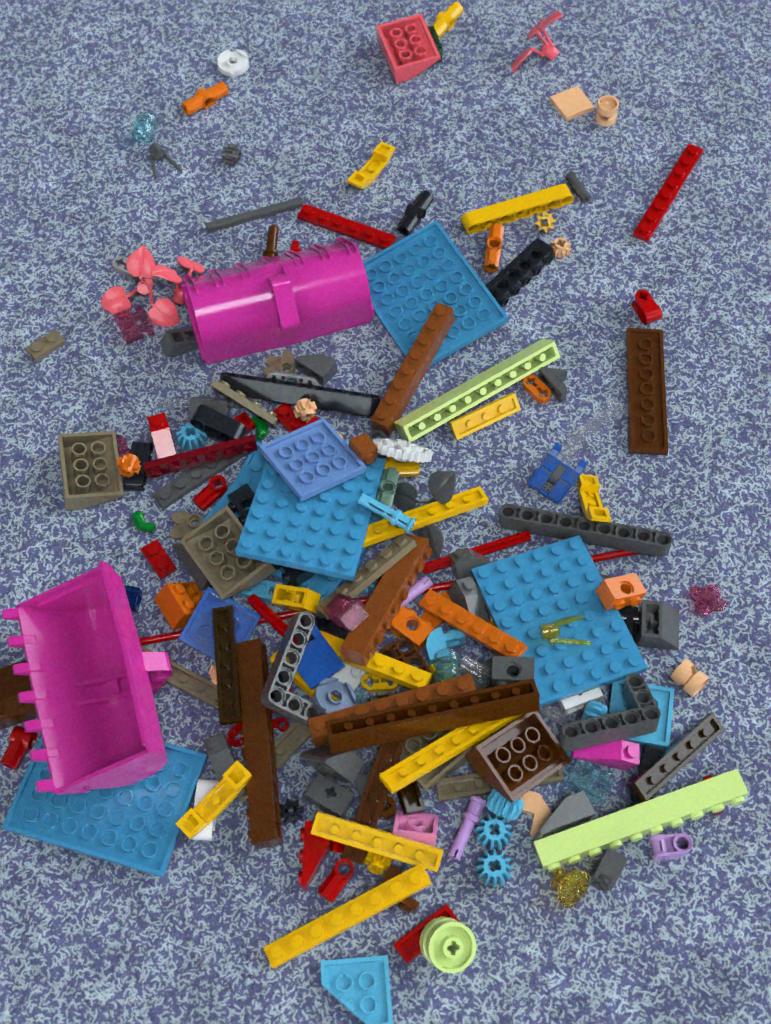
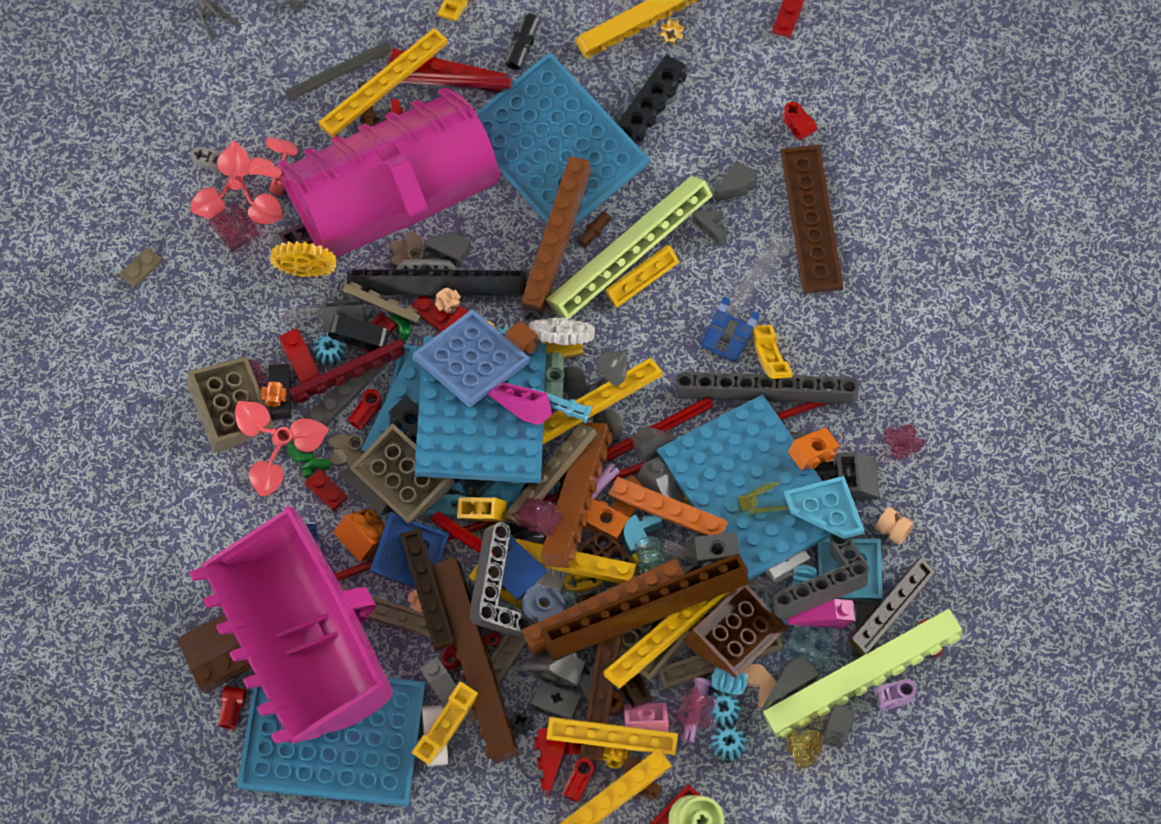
camera: 10 degrees left, 5 degrees up
(105, 483) = (307, 437): none -> coral plant
(152, 534) = (313, 464): none -> green arm
(183, 355) = (303, 259): none -> yellow gear
(287, 226) = (383, 82): none -> yellow plate
(351, 233) = (458, 80): none -> red axle
(352, 504) = (523, 402): none -> dark pink slope
(449, 371) = (594, 229): none -> reddish brown pin
(470, 825) = (699, 706): none -> clear pink plate
(493, 248) = (618, 63): orange piece -> none
(534, 391) = (690, 238): orange beam -> none
(561, 247) = (693, 61): light nougat gear -> none
(583, 350) = (736, 182): none -> dark grey slope
(626, 647) = (826, 506): none -> medium azure plate

